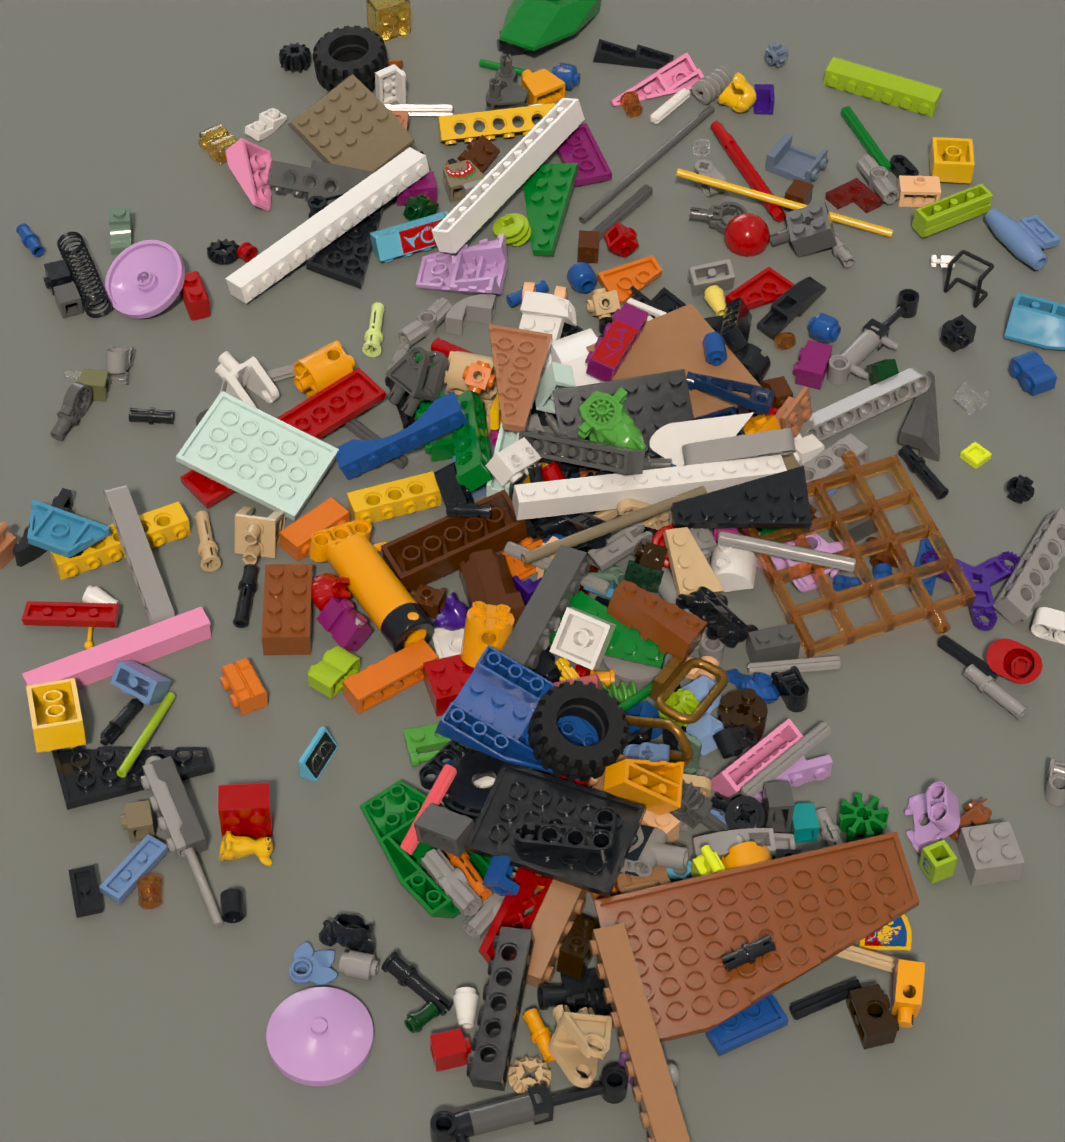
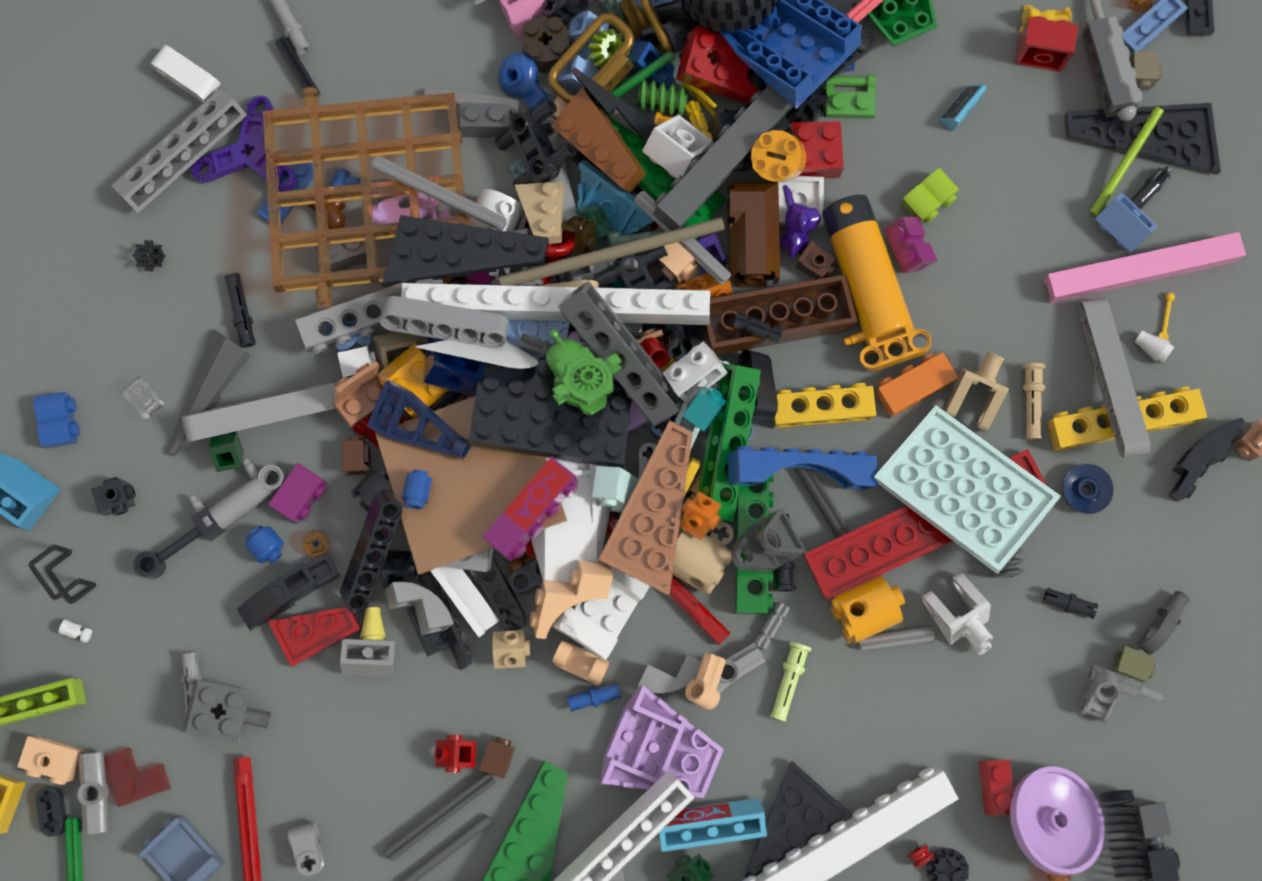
camera: 165 degrees left, 30 degrees up
(56, 715) = (1216, 193): yellow brick -> none
(62, 531) = (1195, 425): dark azure wing -> none
(71, 614) = (1187, 331): red plate -> none
(149, 487) = (1099, 487): none -> dark blue dish
(244, 687) = (1022, 199): orange brick -> none
(246, 587) = (999, 326): black pin -> none
(287, 609) = (963, 282): dark orange brick -> none
(328, 586) = (918, 285): red hair -> none
(388, 676) = (877, 175): orange brick -> none
(441, 298) = (704, 688): none -> light nougat piece
(497, 436) = (705, 408): none -> teal brick
(514, 227) = (572, 819): lime piece -> none
(570, 322) = (587, 583): none -> light nougat arch
(582, 277) = (522, 703): blue head -> none
(636, 274) = (467, 691): orange wing -> none
(655, 651) = (609, 101): none -> black slope
(670, 301) = (430, 610): none -> light grey brick
(714, 215) = (330, 780): dark grey pin -> none
(747, 235) = (296, 733): red piece -> none
(779, 201) = (233, 771): yellow piece -> none
(792, 689) = (484, 73): black piece -> none
(799, 192) = (206, 786): reddish brown brick -> none
(975, 455) = (172, 324): neon yellow tile -> none
(1014, 661) = (255, 37): red piece -> none

